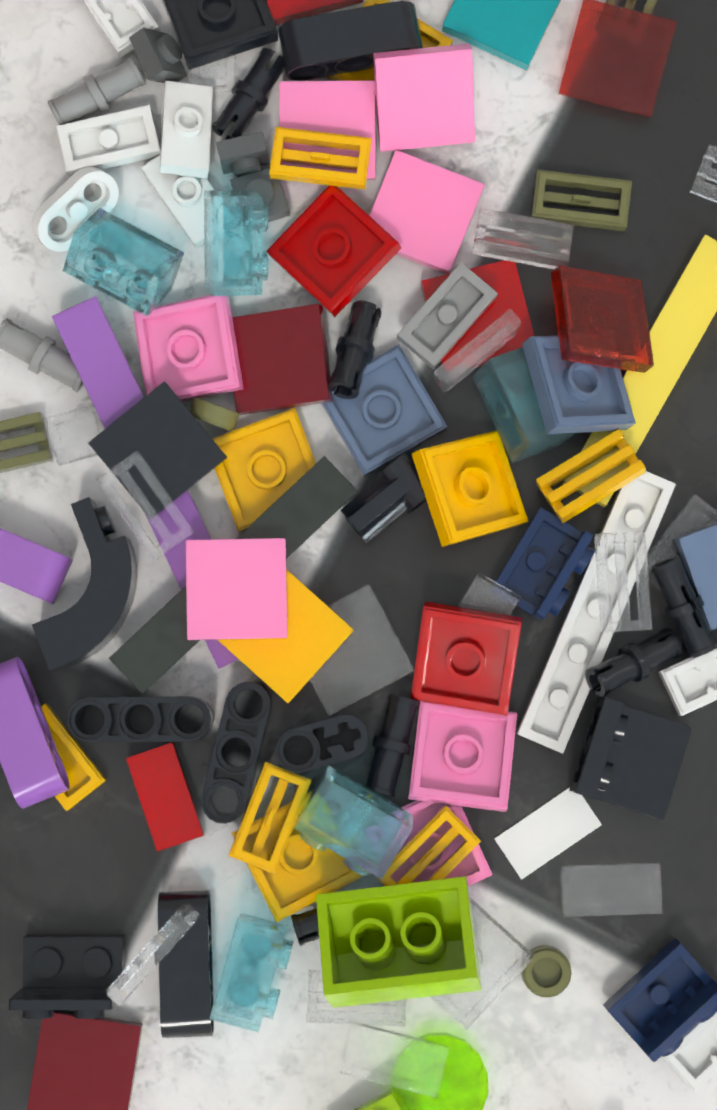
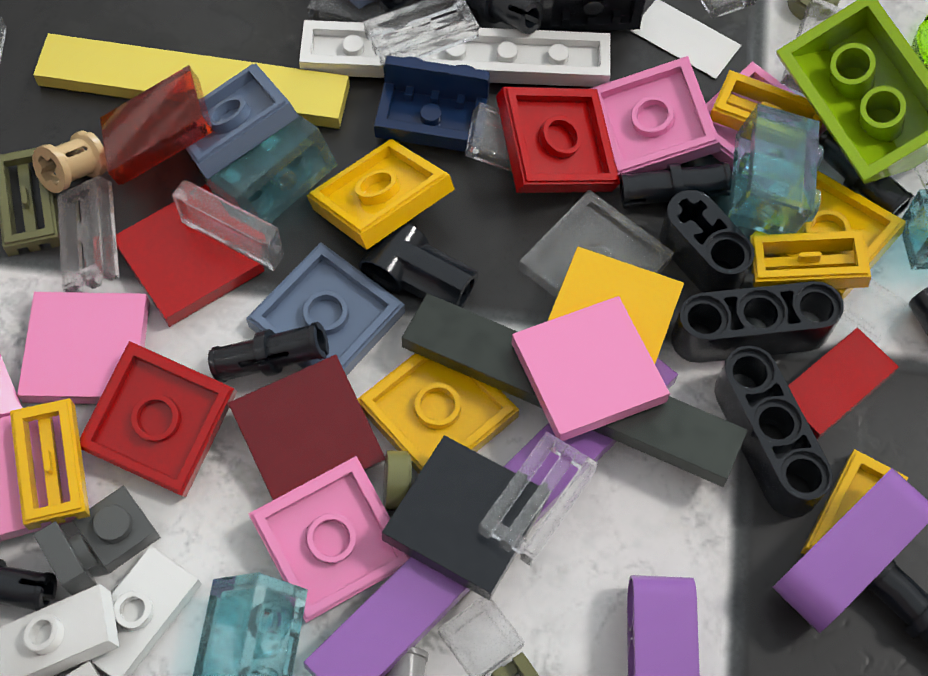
camera: 110 degrees left, 20 degrees down
(106, 601) = (663, 517): black arch -> none
(234, 242) = (183, 518): clear light blue brick -> none
(447, 315) = (199, 269): light grey plate -> none
(581, 460) = (293, 64): yellow tile -> none
(595, 225) = (69, 161): none -> tan bush

